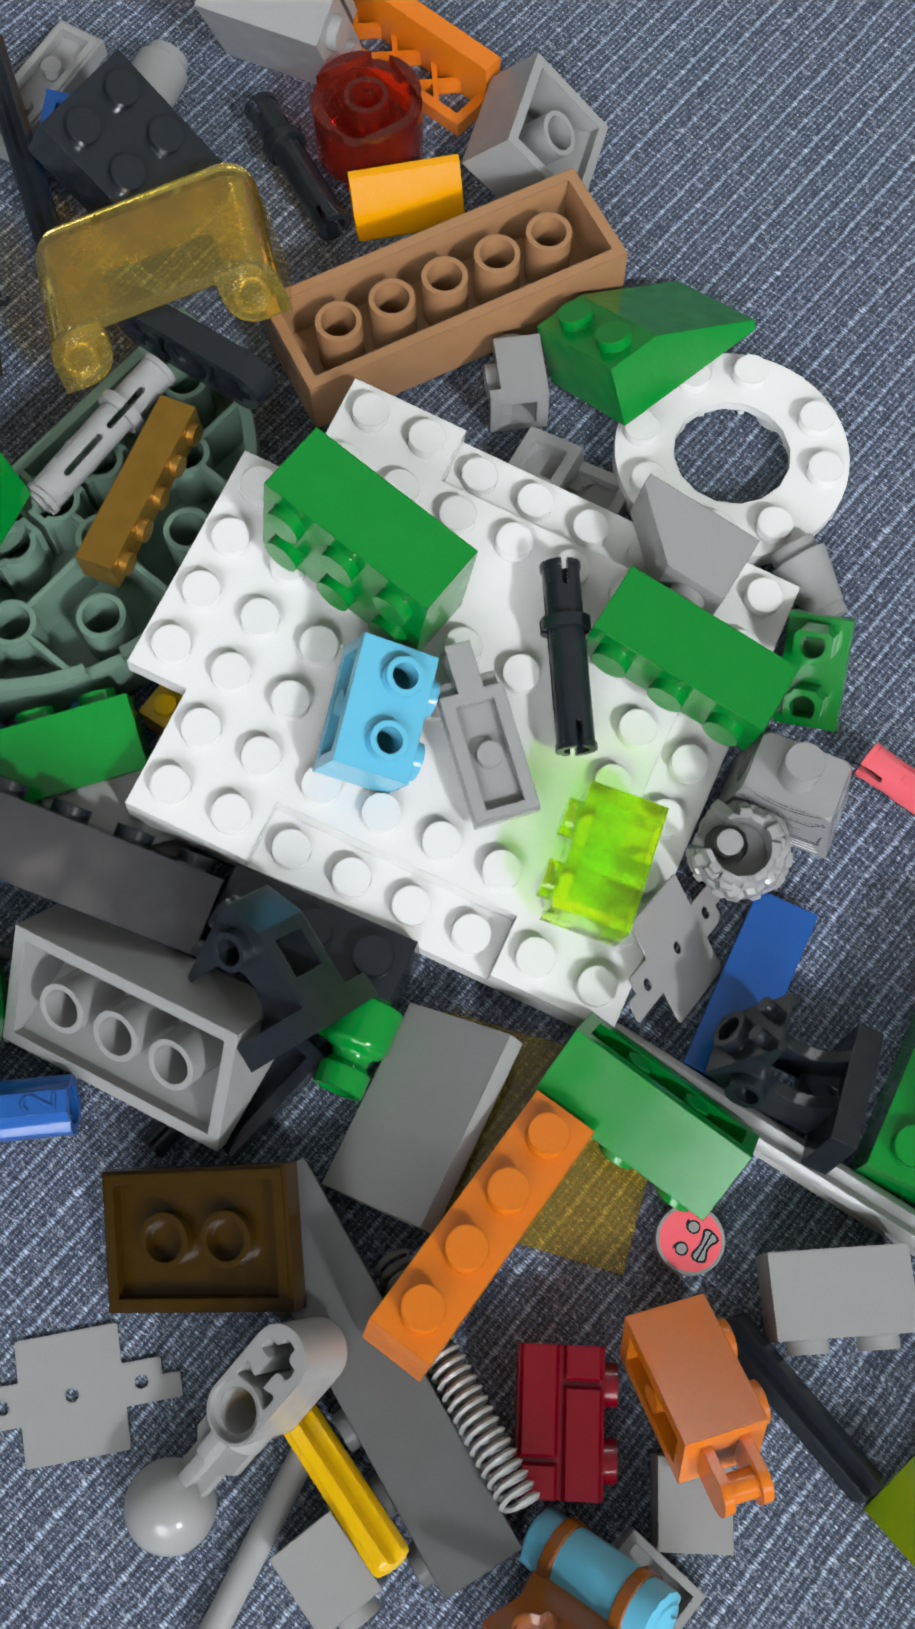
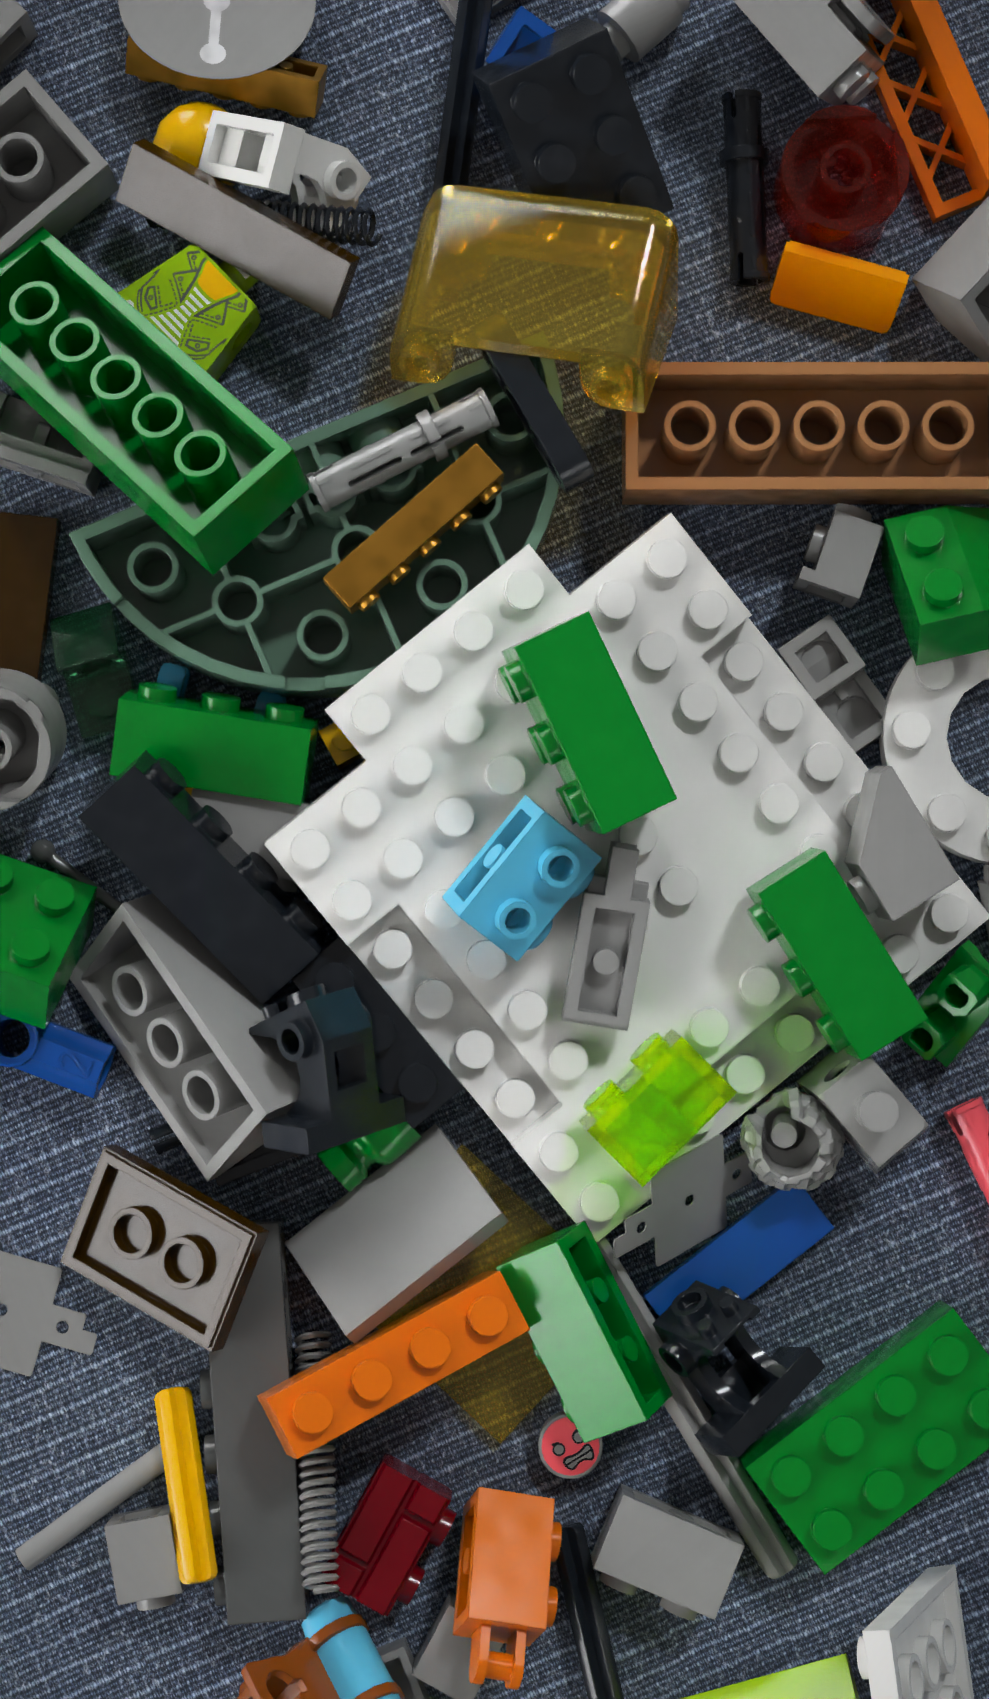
camera: 25 degrees right, 15 degrees up
(175, 1498) = (49, 1437): light grey beam -> none
(566, 632) = (726, 897): black pin -> none

